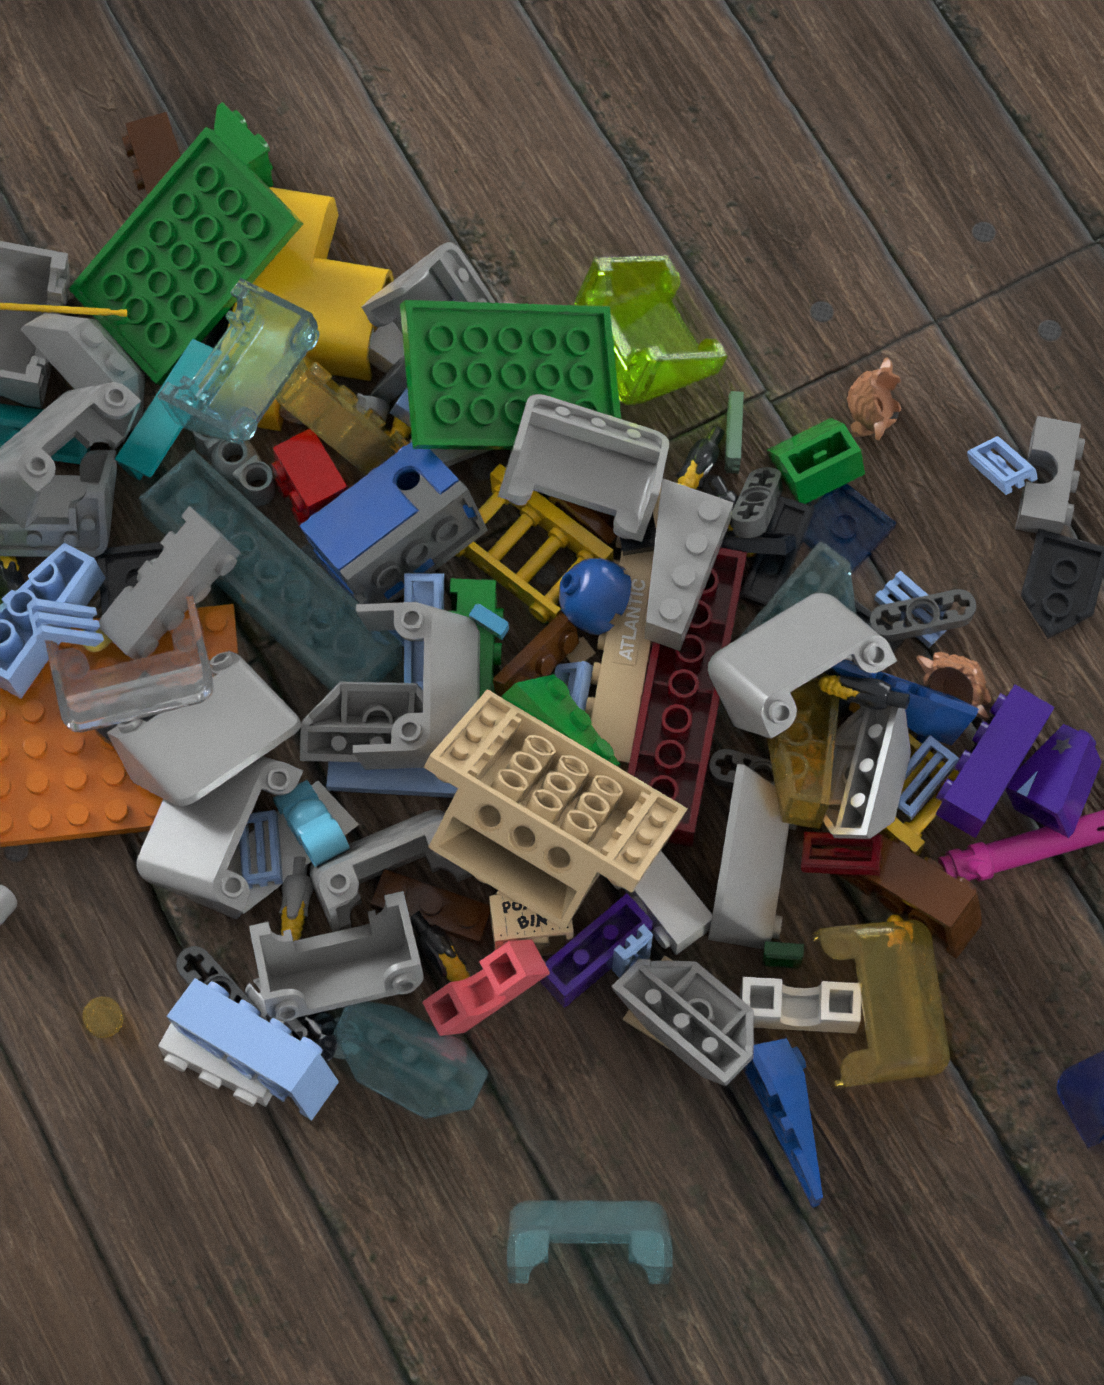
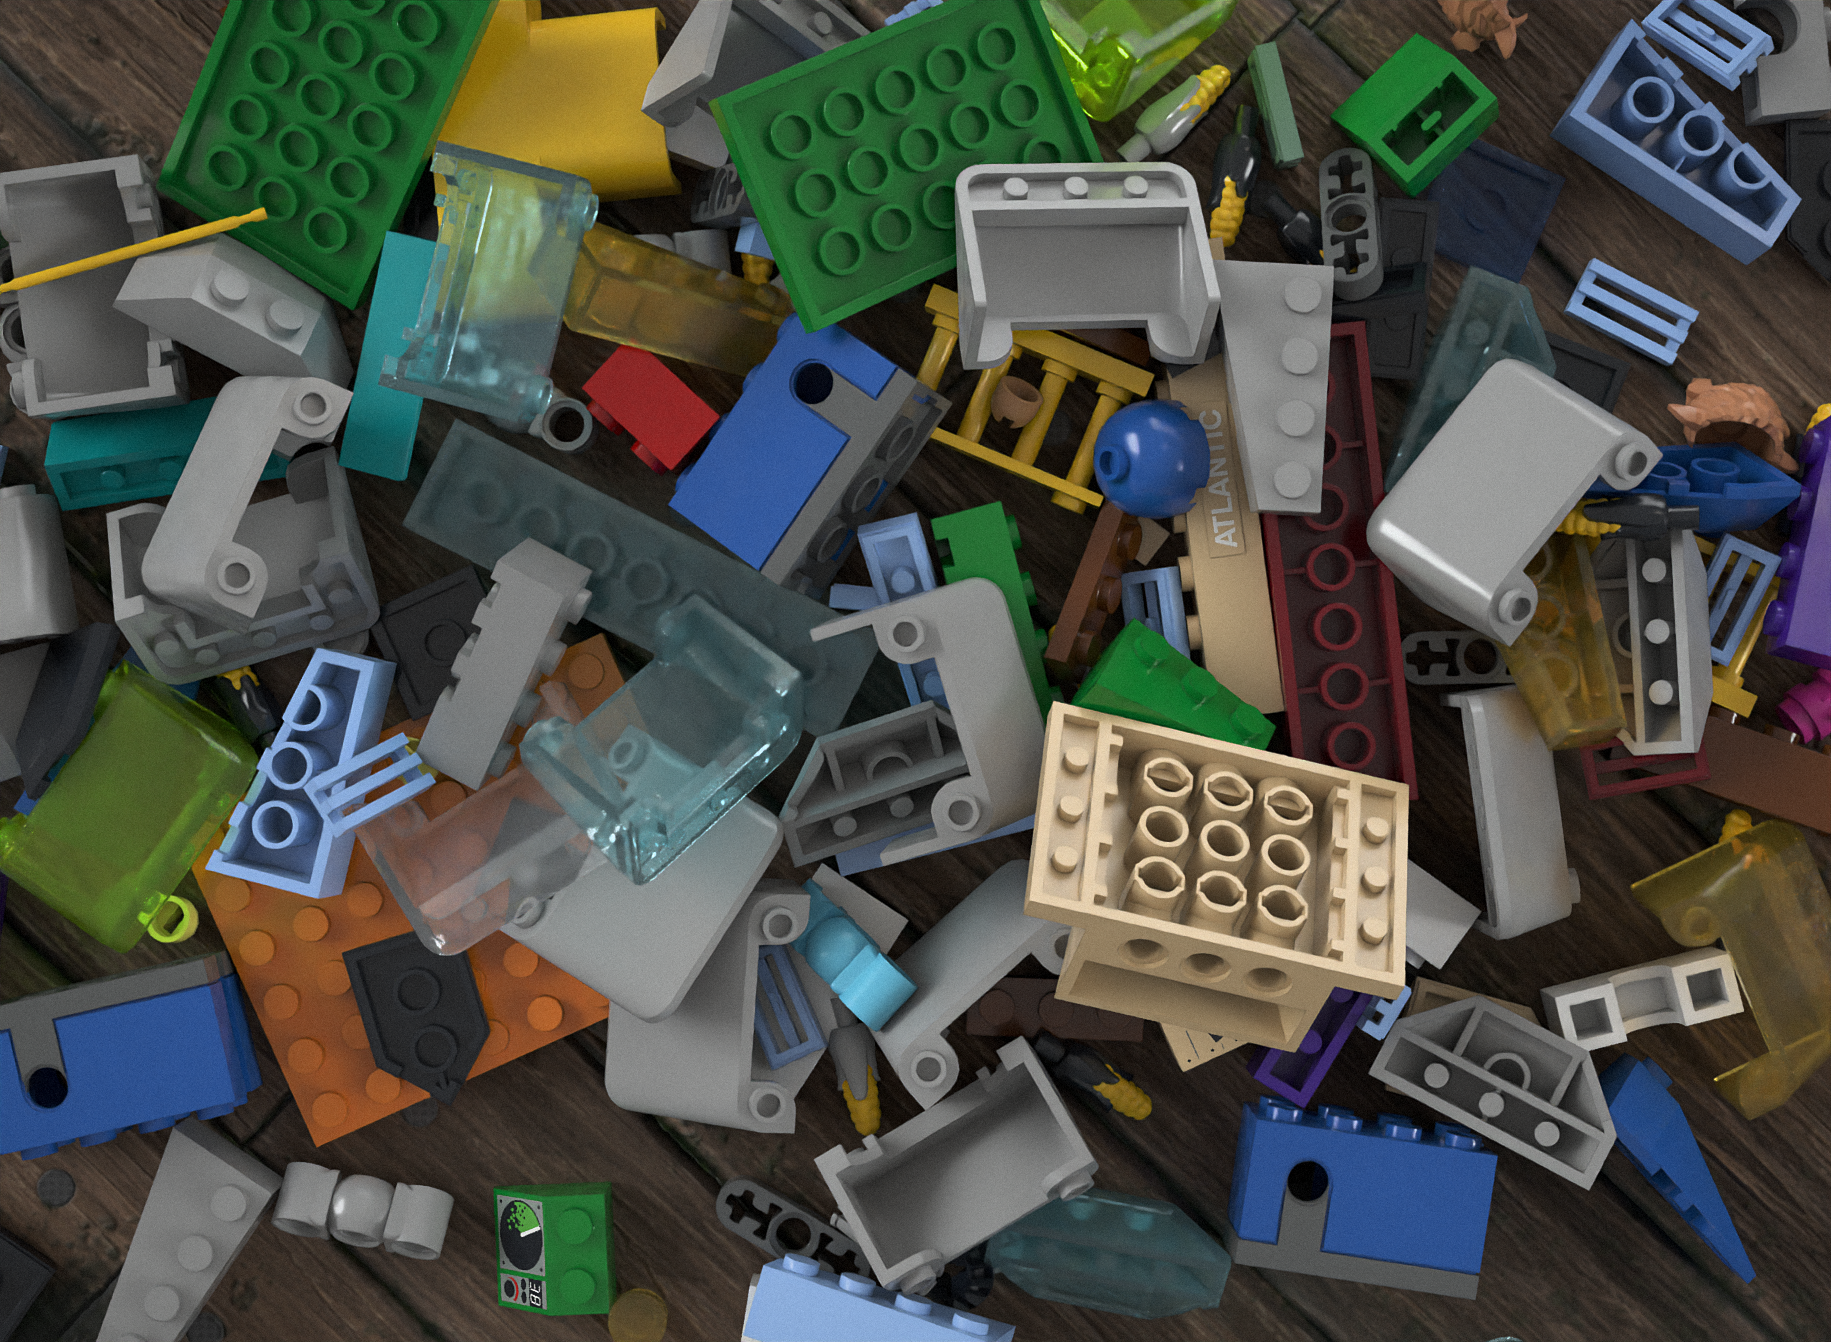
camera: 20 degrees left, 20 degrees up
(42, 778) = (419, 1012): none -> black tile
(70, 952) = (556, 1248): none -> green slope
(257, 653) = (672, 741): none -> clear light blue windscreen
(489, 621) = (1015, 576): dark azure tile -> none
(503, 977) = (1201, 1116): coral arch -> none
(526, 540) = (1015, 401): none -> medium nougat hinge
(594, 1079) = (1376, 1210): none -> blue piece
(679, 419) = (1174, 115): none -> light grey piece
(782, 954) = (1591, 926): dark green tile -> none
(913, 629) = (1695, 319): dark grey beam -> none
(963, 520) = (1674, 149): none -> medium blue wedge

